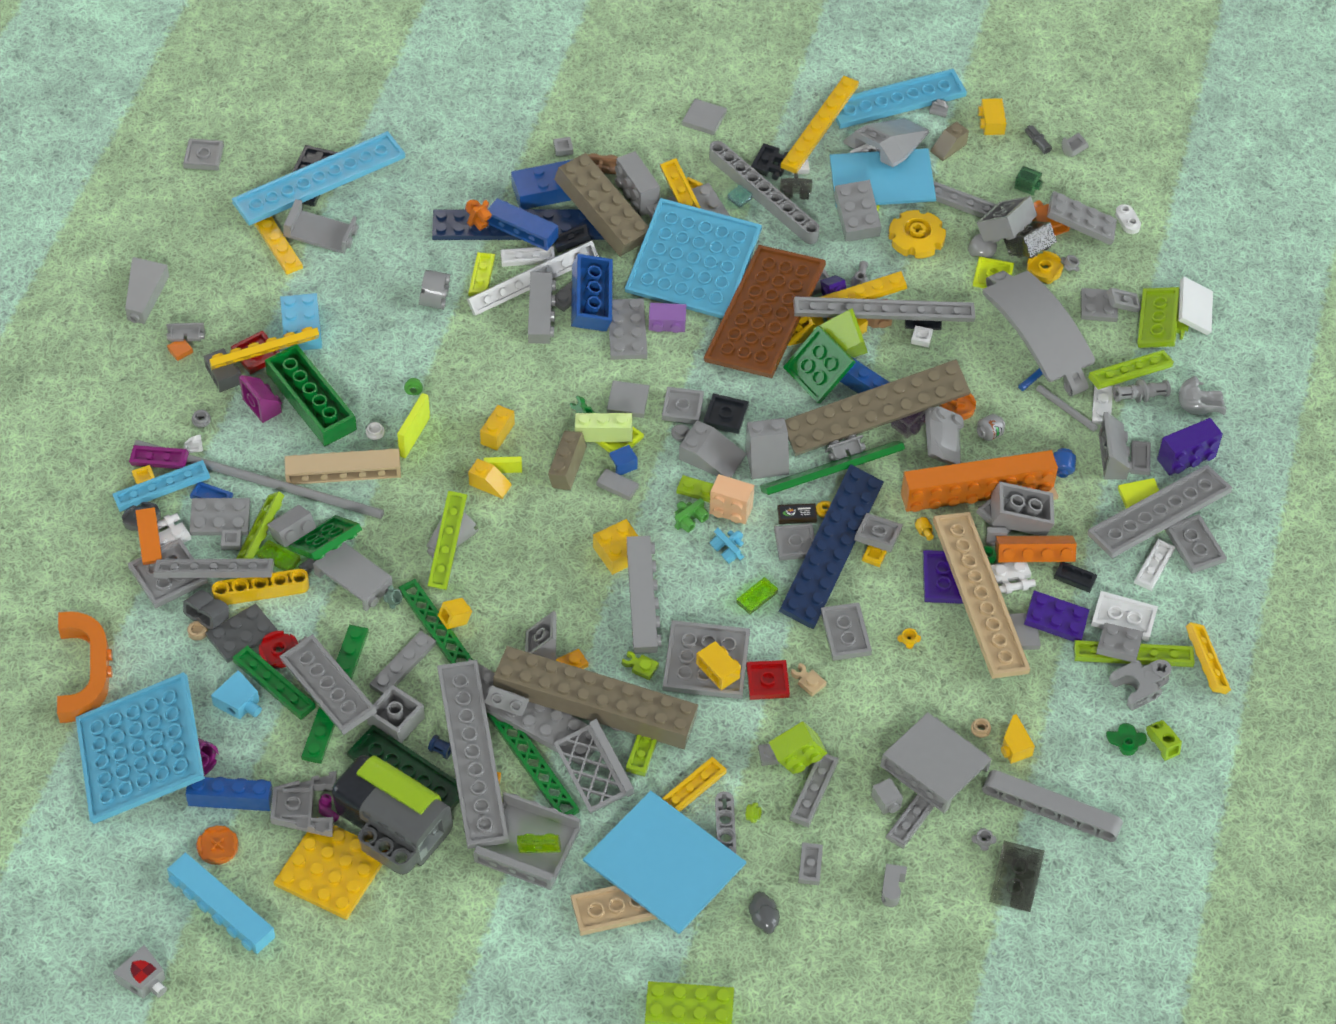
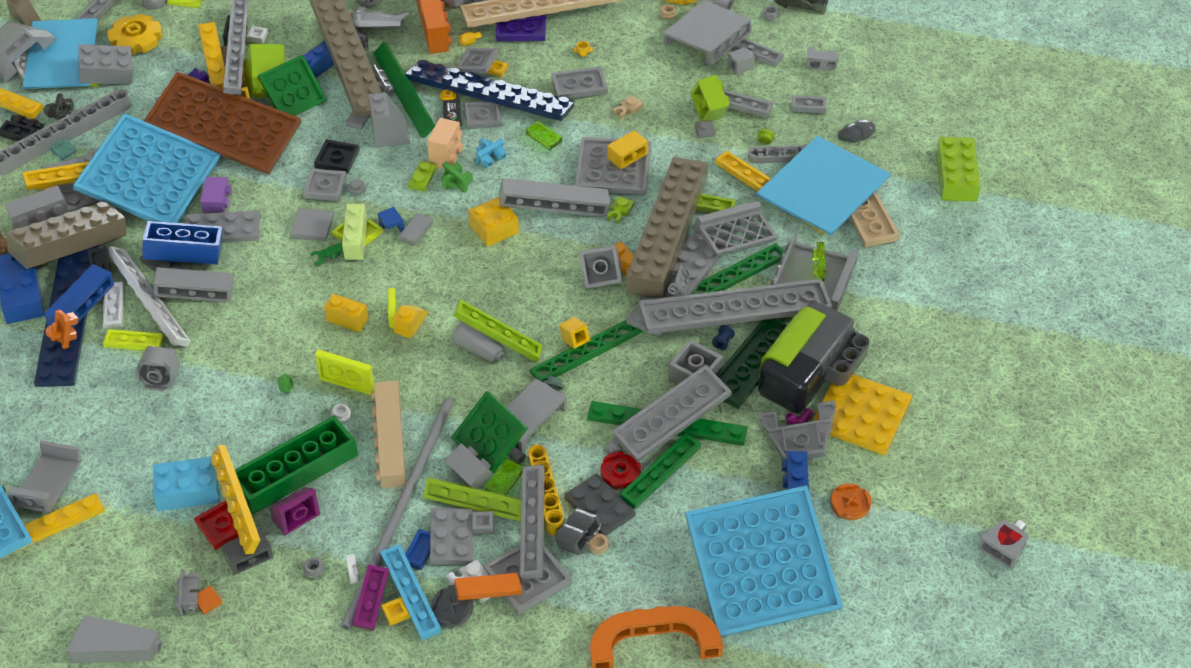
camera: 90 degrees left, 5 degrees down
(220, 903) = (917, 488): medium azure brick -> none
(237, 697) = (681, 495): medium azure torso -> none
(403, 663) = (629, 374): light grey plate -> none
(567, 460) = (390, 259): dark tan brick -> none
(710, 451) = (380, 166): light grey slope -> none
(767, 679) = (627, 123): red plate -> none
(860, 276) = (182, 68): light grey bar -> none

